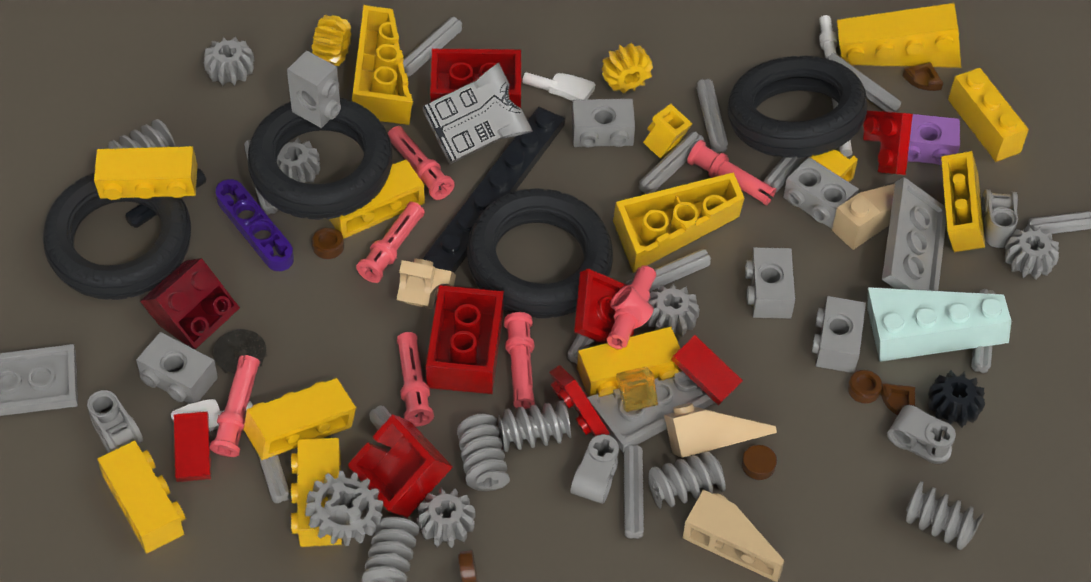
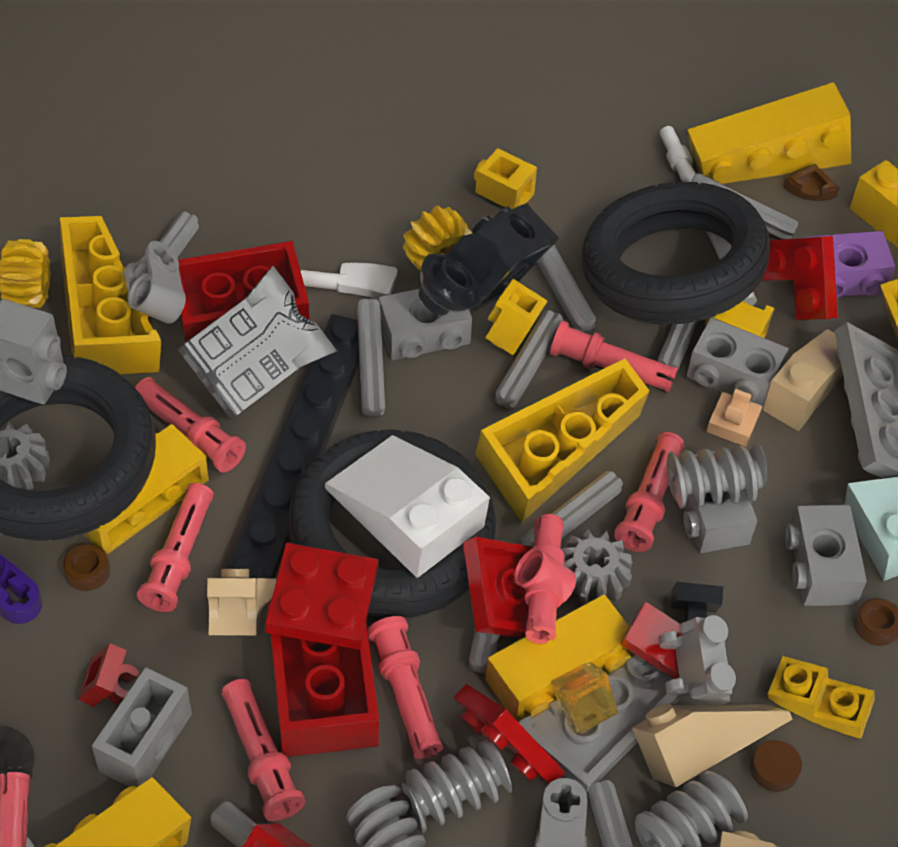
camera: 15 degrees left, 0 degrees up
(322, 313) = (103, 676): none -> red tile
(338, 348) = (142, 729): none -> light grey brick
(417, 62) = (156, 283): none -> light grey piece
(475, 287) = (322, 596): none -> red plate
(553, 239) = (411, 502): none -> white slope
(557, 141) = (371, 357): none -> light grey axle
(653, 87) = (485, 261): none -> black brick
(691, 34) = (505, 179): none -> yellow brick
(721, 379) = (701, 661): none -> light grey piece
(722, 277) = (646, 505): none -> coral pin
(736, 345) = (696, 599): none -> black tile
(771, 263) = (717, 474): none -> light grey piece
(801, 424) = (825, 701): none -> yellow slope
(807, 231) = (734, 417): none -> light nougat tile

